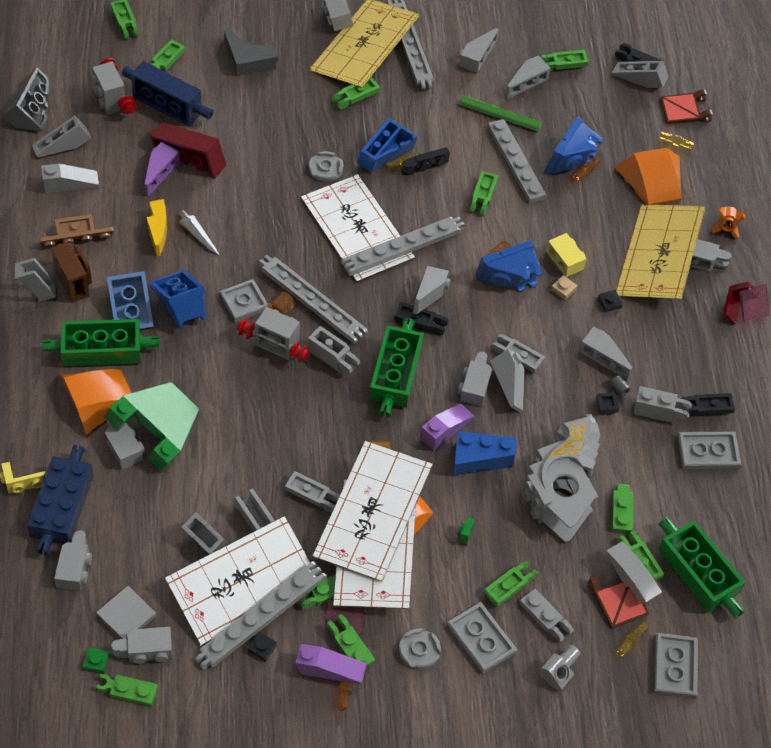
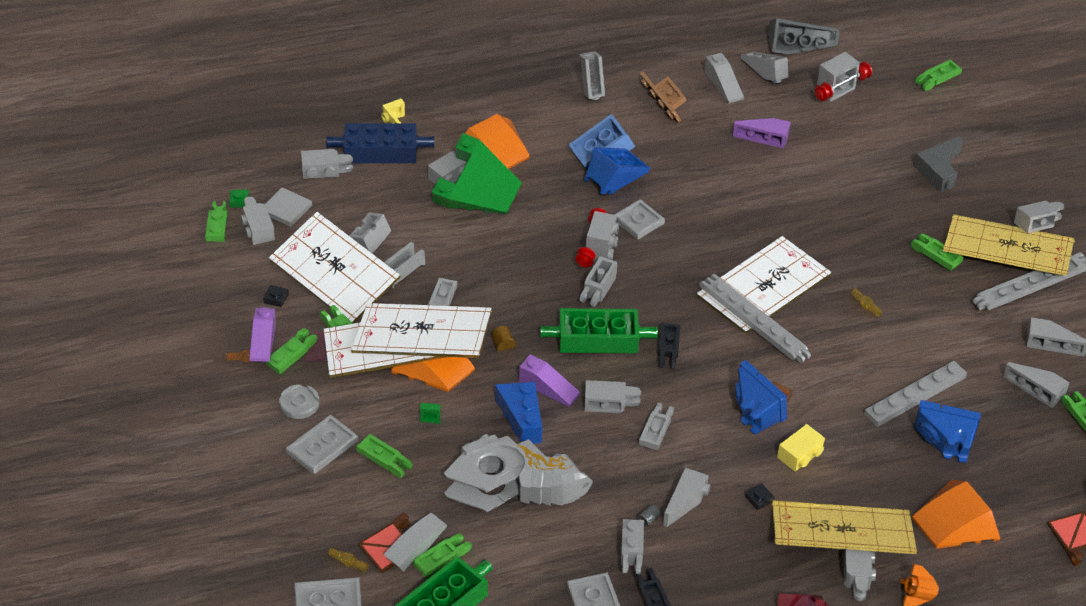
camera: 80 degrees right, 10 degrees down
(72, 270) = (614, 96): reddish brown brick -> none
(101, 342) = (547, 132): green brick -> none
(157, 225) = (695, 144): yellow slope -> none
(167, 93) = (852, 114): dark blue brick -> none
(168, 55) = (903, 110): bright green plate -> none
(192, 146) = (796, 146): dark red wedge -> none
(192, 226) = (708, 170): flat silver bar -> none
(260, 615) = (304, 286): light grey hinge -> none
(282, 302) = (643, 243): clear orange brick -> none
(312, 298) = (658, 263): light grey hinge -> none
(325, 166) = (829, 247): light grey tile -> none
(386, 145) = (872, 279): blue wedge -> none
(425, 161) = (873, 317): black hinge -> none
(431, 288) = (704, 341): light grey slope -> none
(484, 191) = (854, 370): bright green hinge -> none
(500, 113) = (975, 371): bright green axle -> none
(511, 377) = (617, 420): light grey slope -> none
(545, 614) = (358, 488): light grey hinge -> none
(557, 668) = (304, 502): light grey piece -> none
(564, 287) = (760, 455): tan plate -> none
(587, 167) = (936, 454): clear orange bar -> none
(607, 403) = (621, 506): black plate -> none
(622, 509) = (497, 536): bright green hinge -> none
(677, 140) = (1022, 532): clear yellow bar -> none

